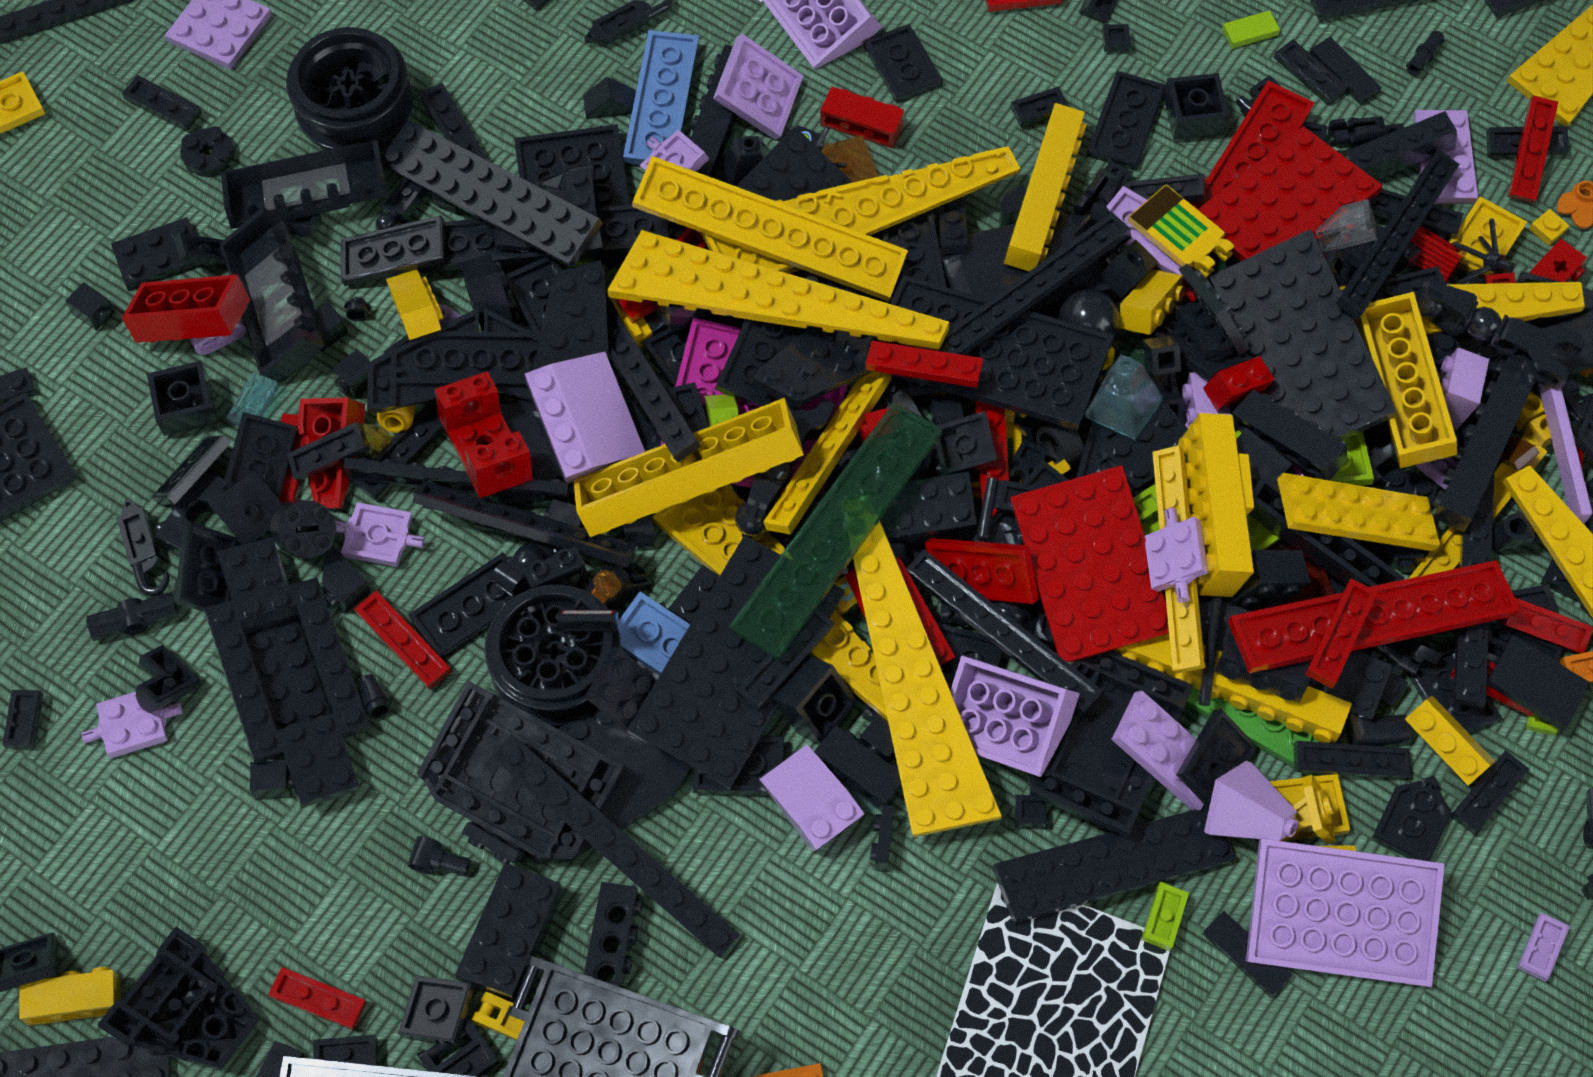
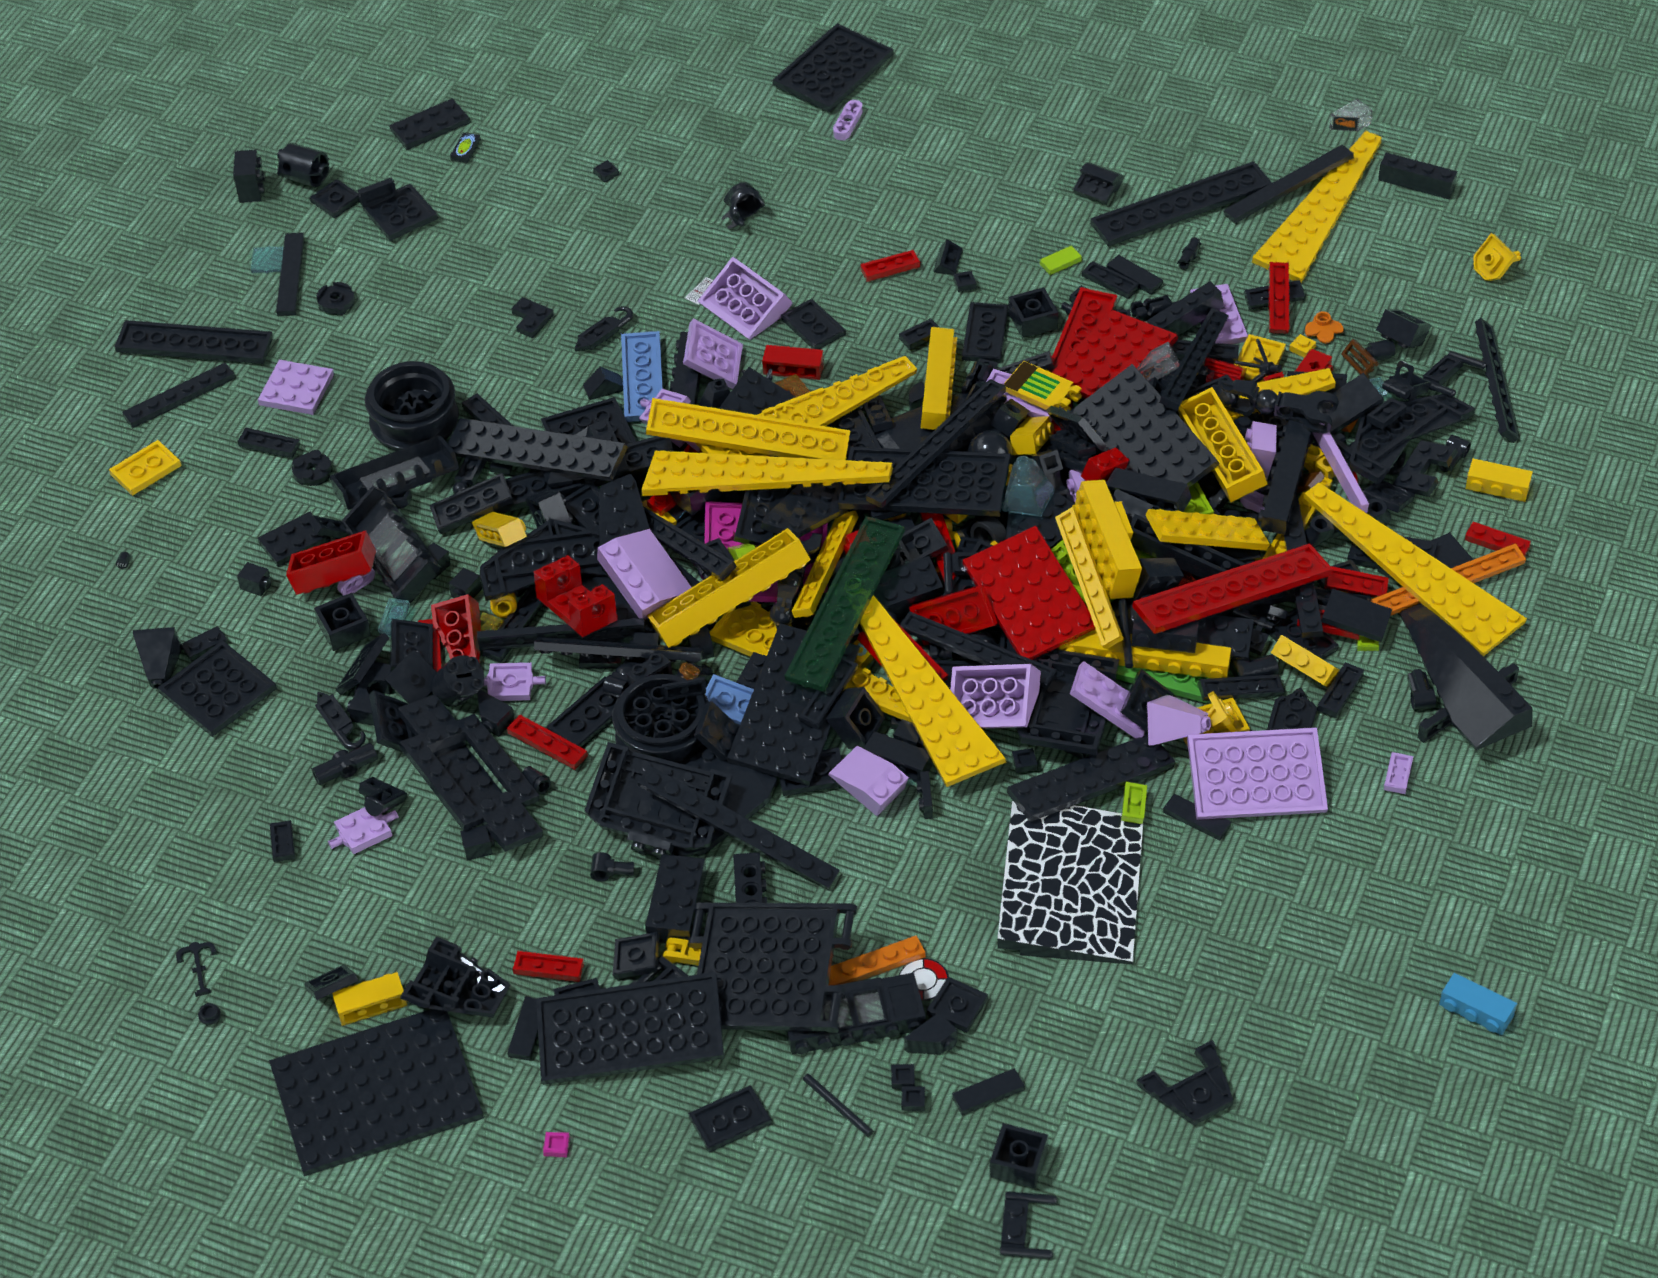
camera: 10 degrees left, 15 degrees down
(328, 451) = (462, 631): black plate -> none
(357, 309) = (454, 546): black plate -> none
(924, 364) = (881, 491): red plate -> none
(1176, 554) = (1086, 572): lavender plate -> none
(1341, 633) = (1211, 597): red plate -> none

